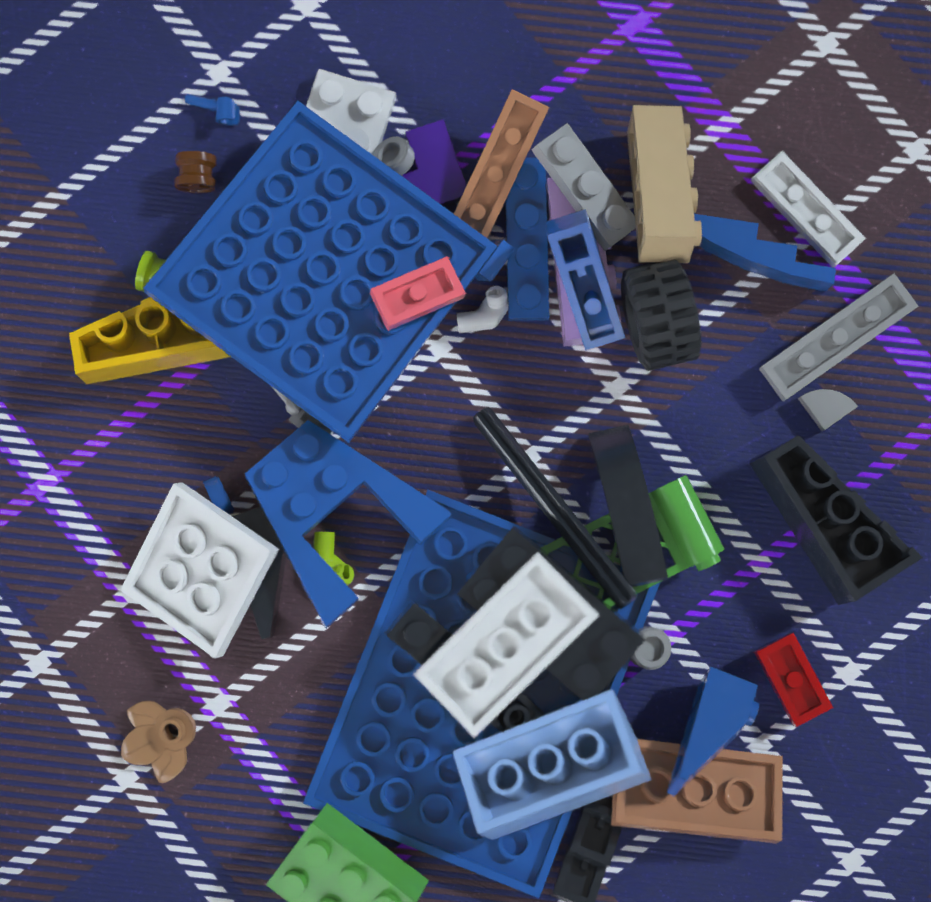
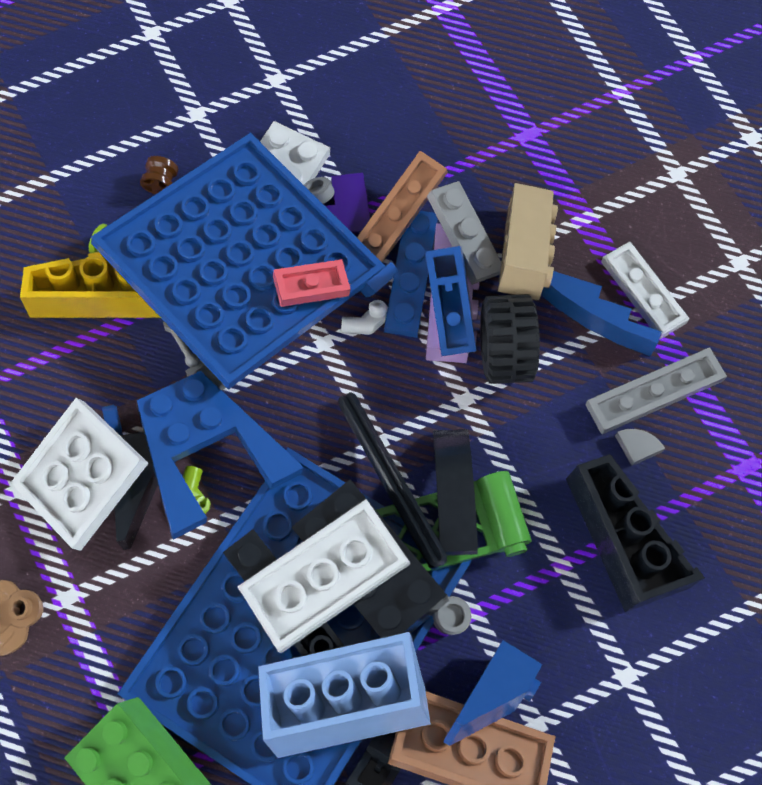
camera: 10 degrees right, 15 degrees down
(226, 110) = (194, 137): blue hand -> none
(793, 679) = (575, 669): red plate -> none

